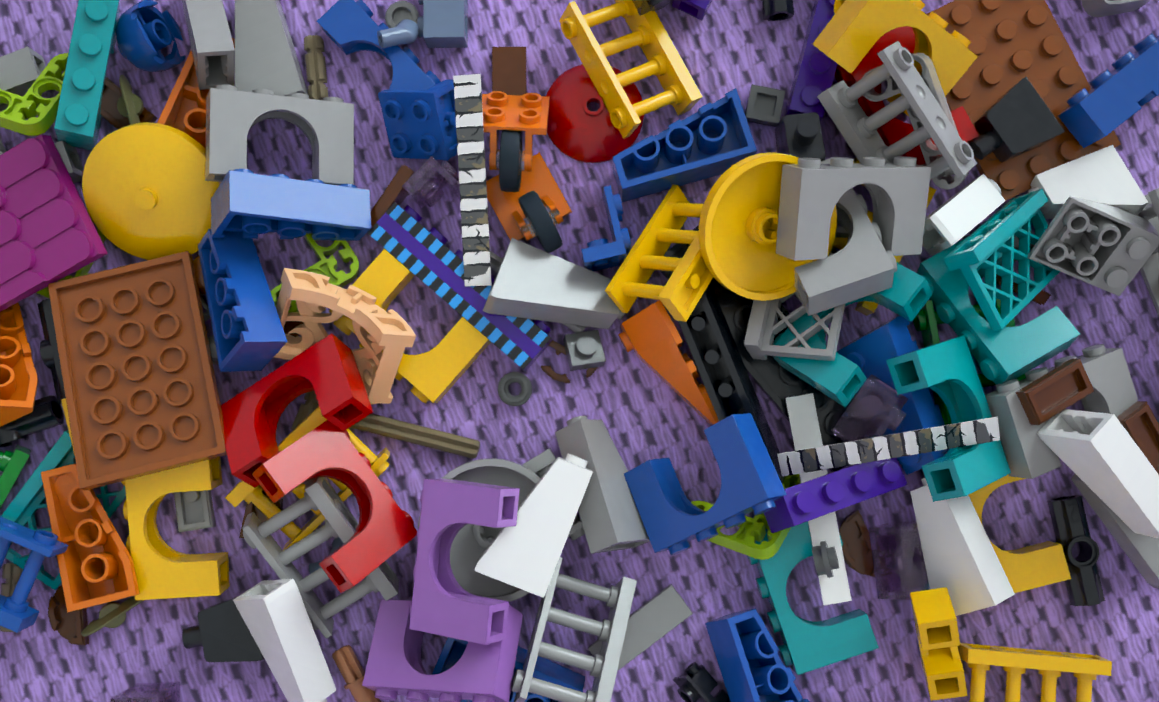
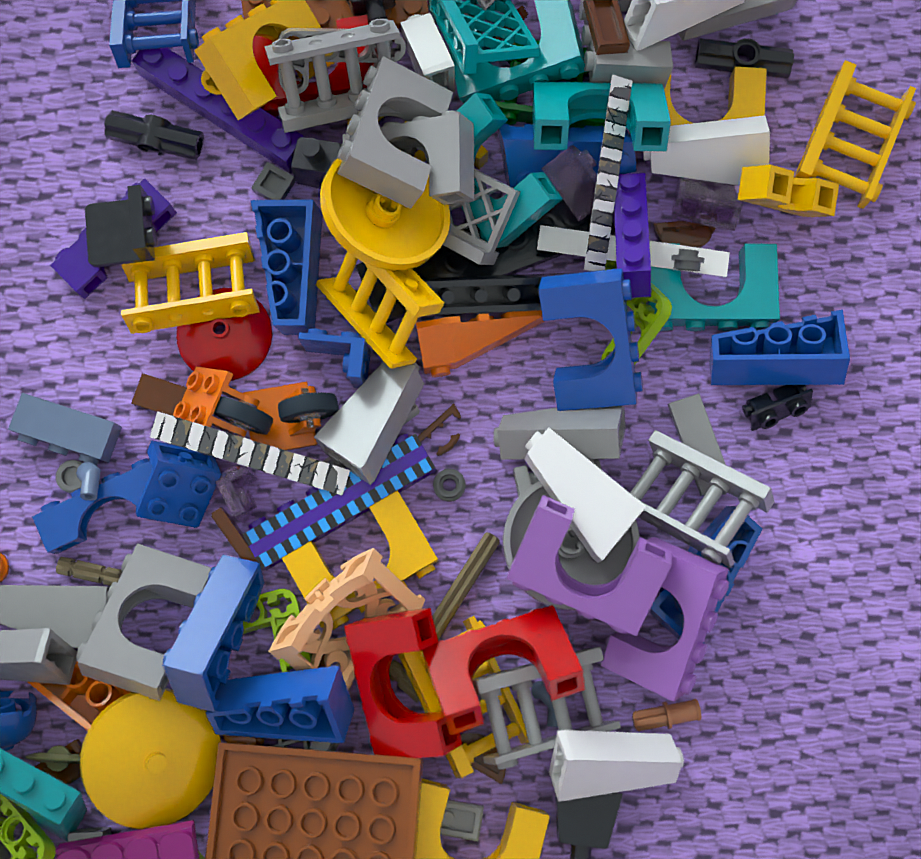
camera: 75 degrees left, 5 degrees down
(584, 350) = (435, 411): dark grey plate -> none

